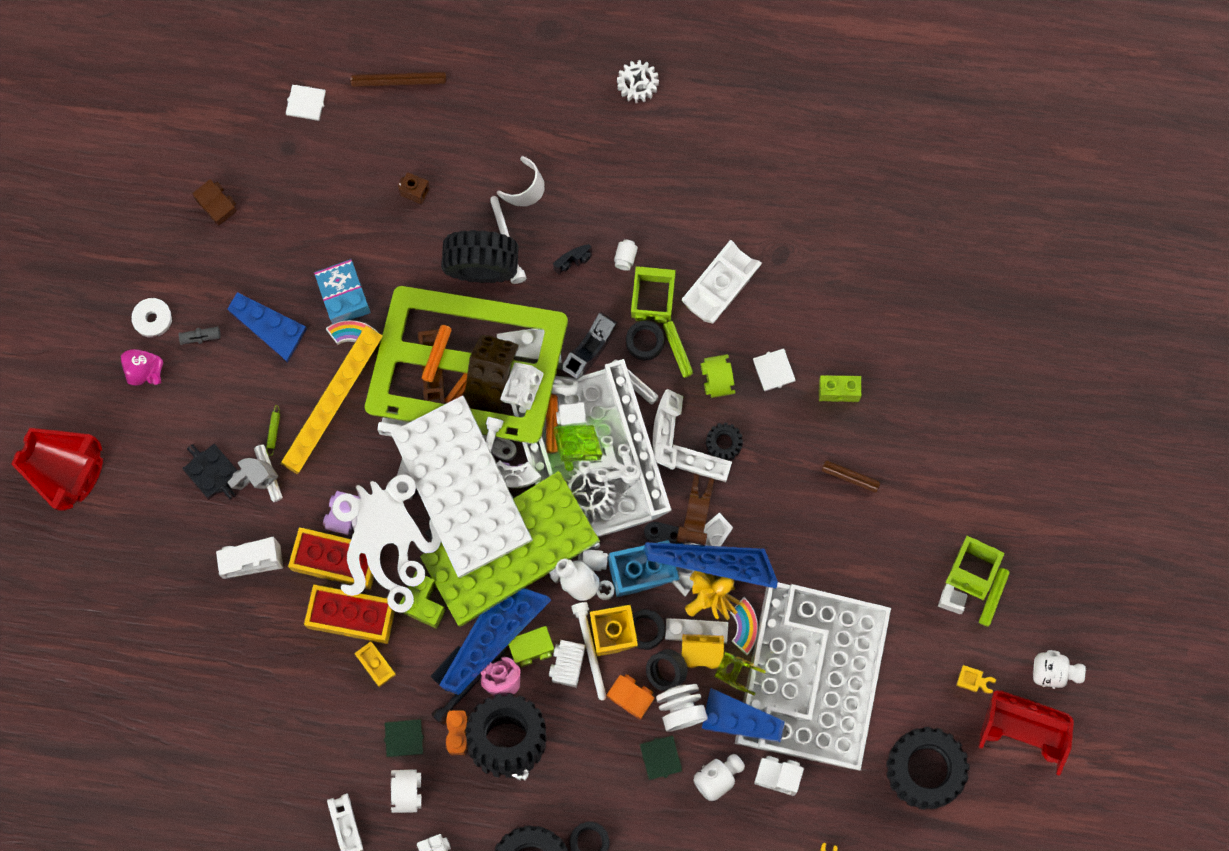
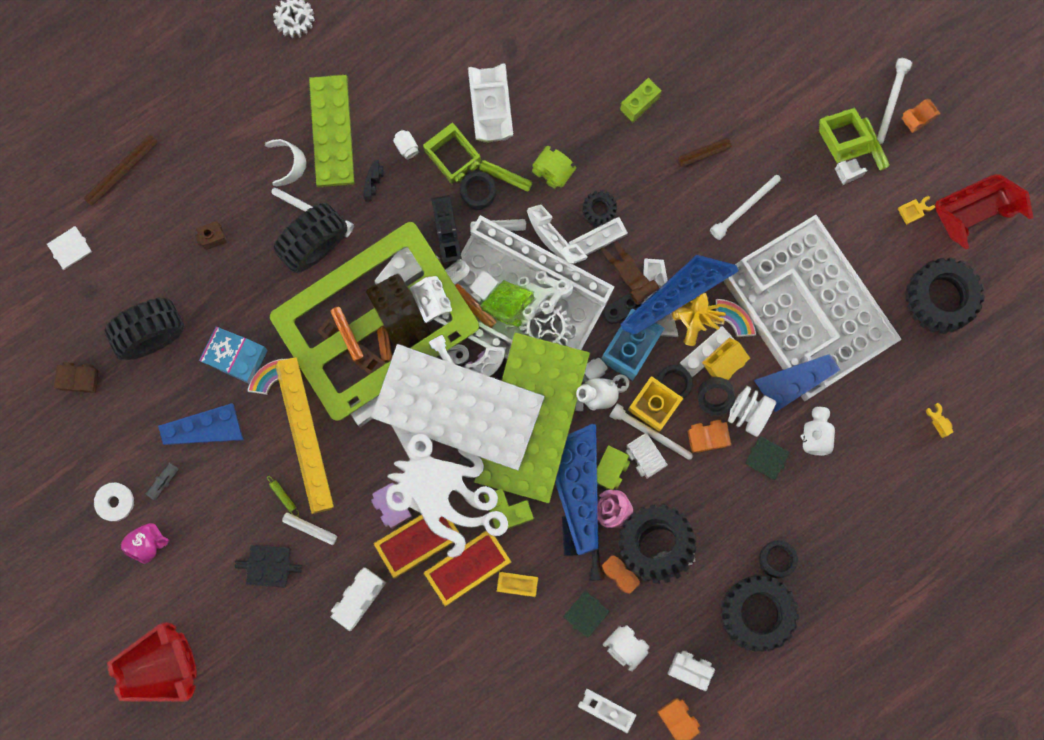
camera: 50 degrees left, 5 degrees up
(255, 471) = (301, 535): light grey brick -> none
(294, 210) = (144, 328): none -> black tyre
(581, 193) = (331, 131): none -> lime plate
(730, 678) = (760, 361): clear neon green piece -> none
(774, 370) = (583, 129): white piece -> none
(779, 776) = (862, 390): white brick -> none
(802, 547) = (719, 230): none -> white piece
(1053, 610) = (920, 115): none -> orange brick
(1054, 670) = (960, 153): white piece -> none
(1079, 559) = (903, 66): none -> white piece

